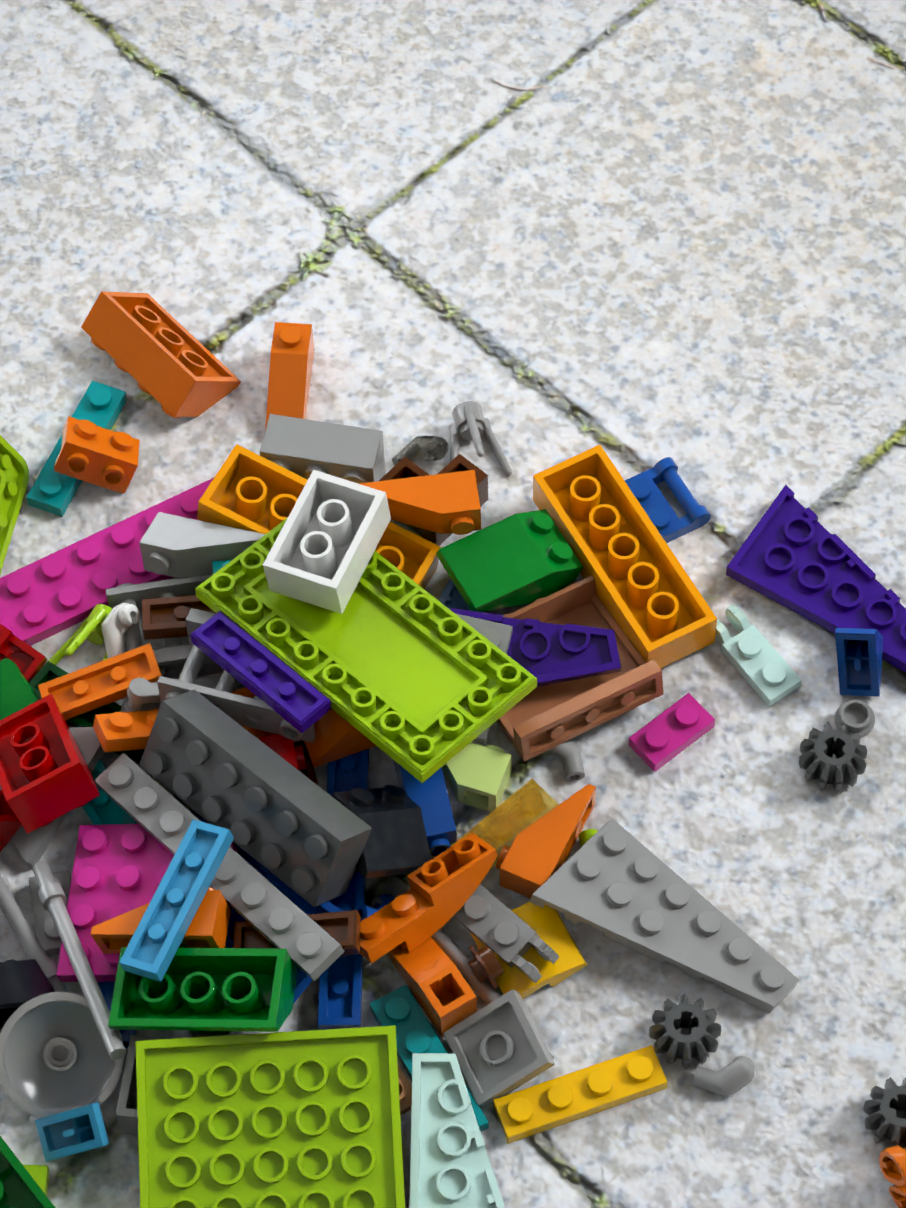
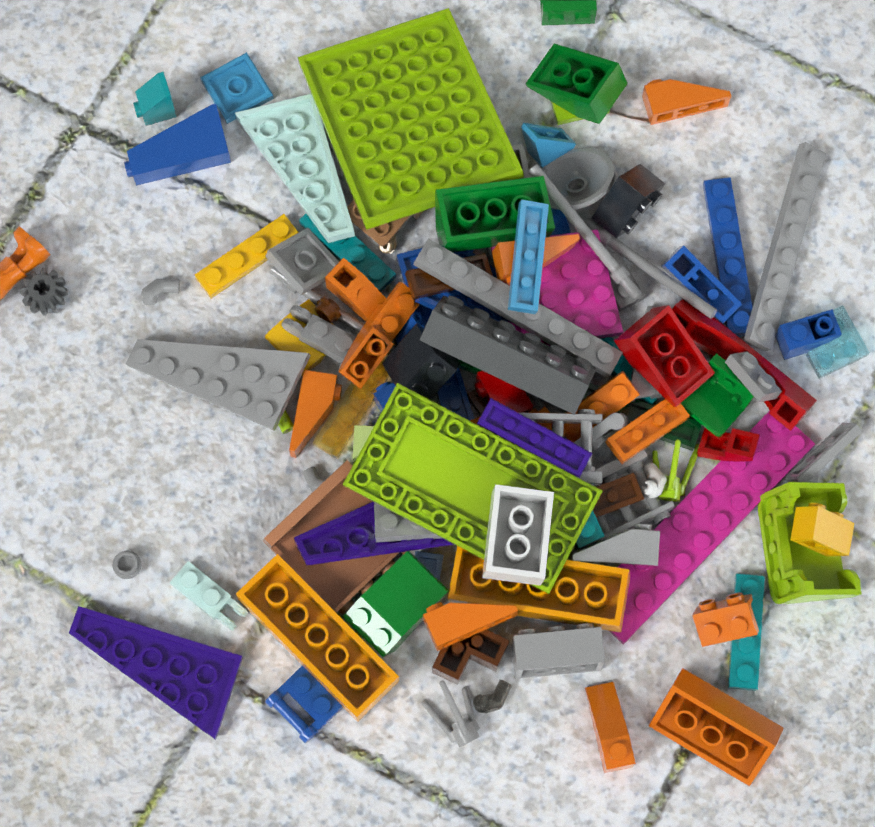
camera: 160 degrees right, 15 degrees up
(671, 732) = (251, 521): dark pink plate -> none
(701, 1031) = (201, 310): dark grey gear -> none
(832, 770) = (125, 533): dark grey gear -> none
(859, 661) = (131, 605): blue slope -> none

